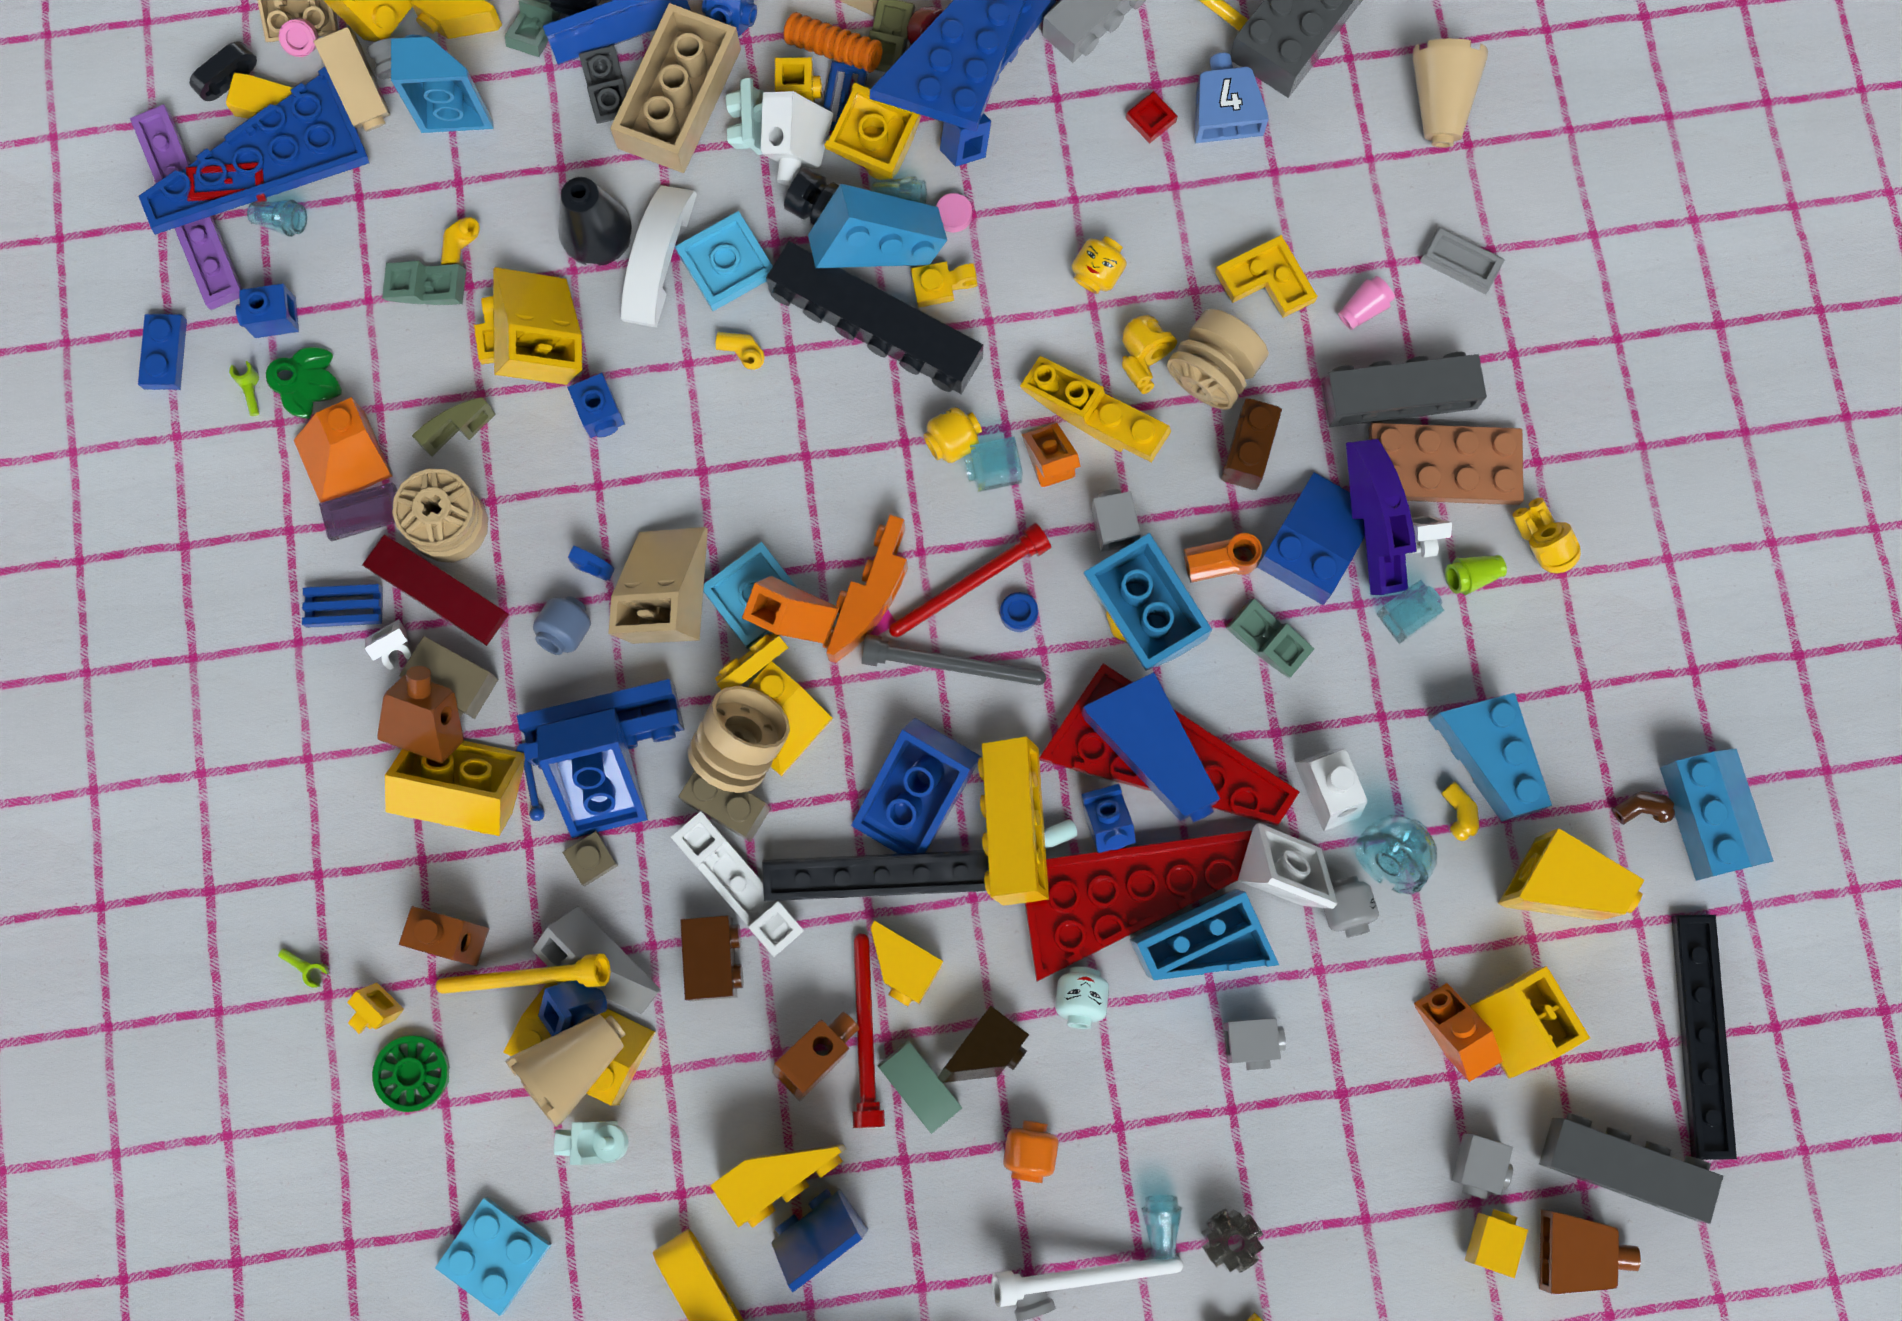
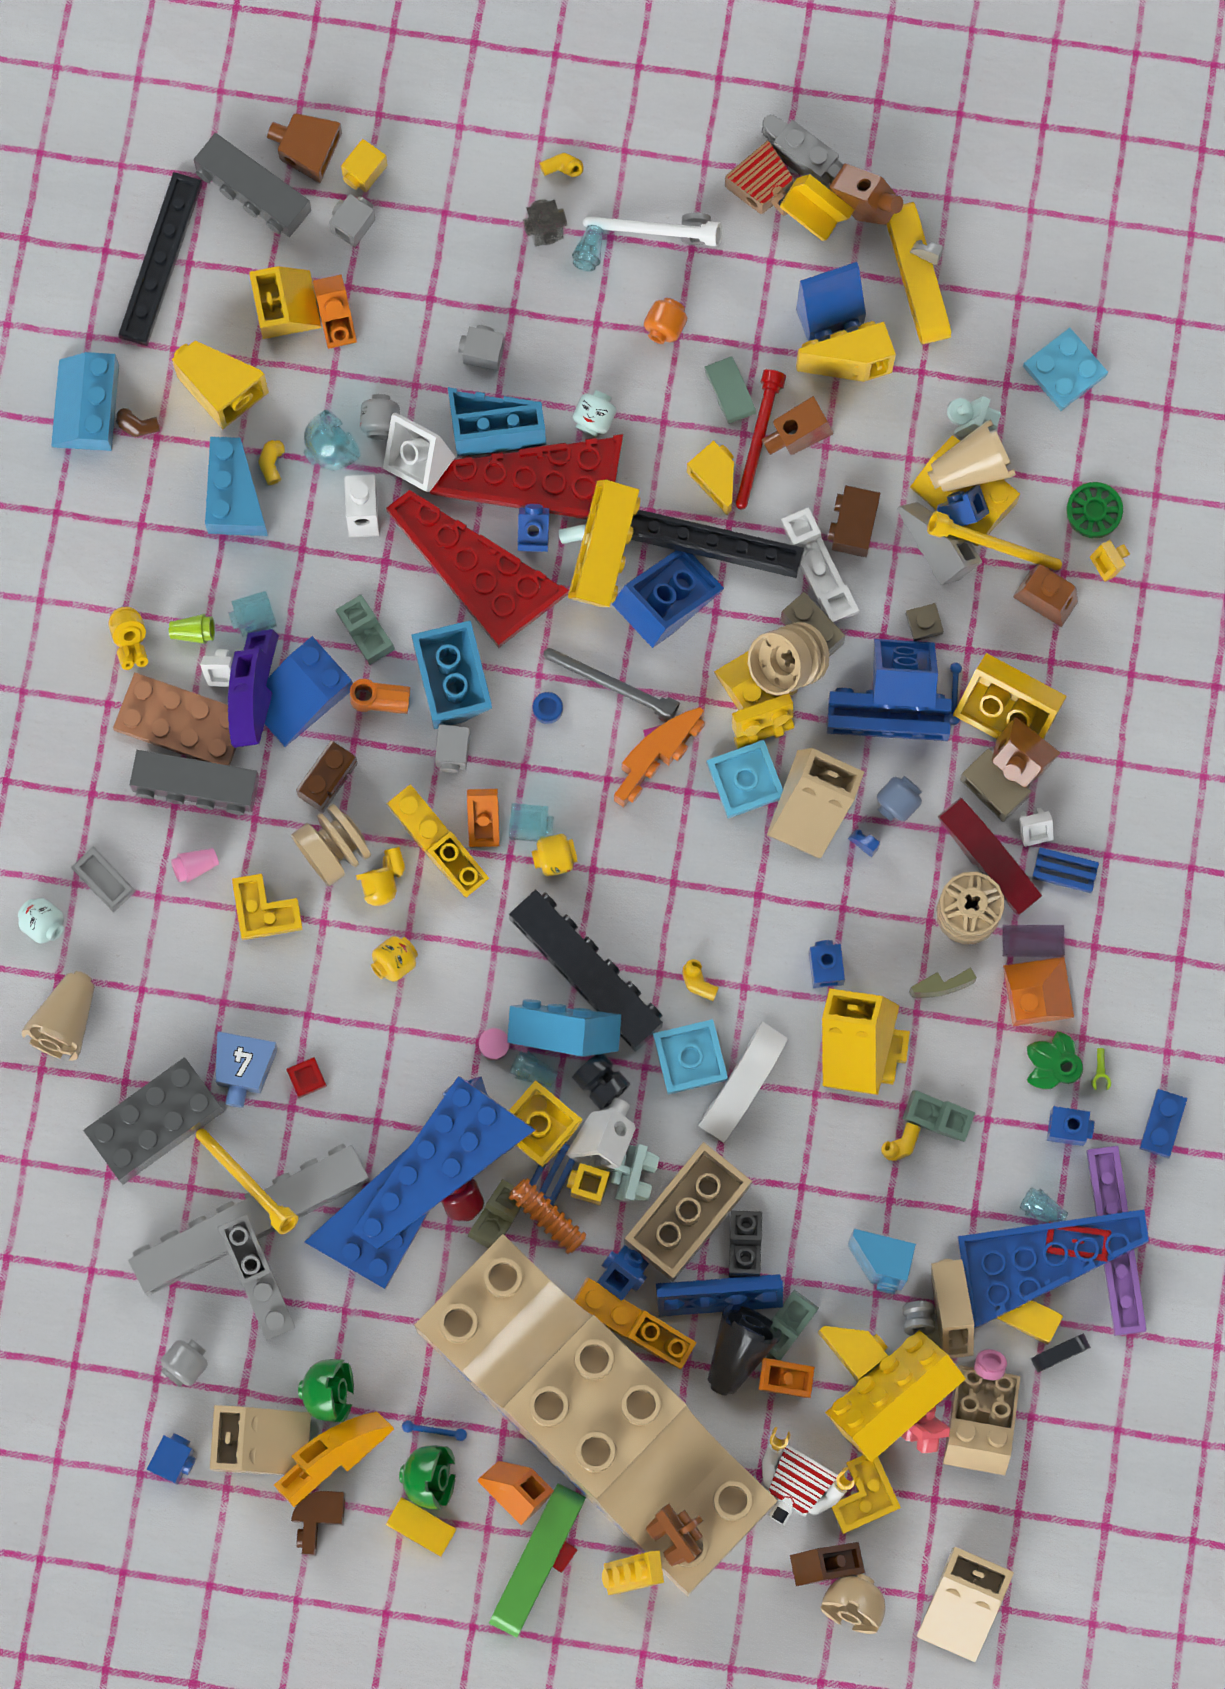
camera: 165 degrees left, 0 degrees up
(303, 966) = (1154, 606): lime hand -> none
(592, 223) = (785, 1131): black cone -> none
(789, 611) = (723, 745): orange slope -> none
(936, 284) = (526, 986): yellow plate -> none
(987, 1049) = (675, 397): dark brown slope -> none
(1030, 543) = (522, 754): red piece -> none
(1152, 742) = (484, 571): blue slope -> none
(1514, 187) = (41, 920): none -> light aqua head

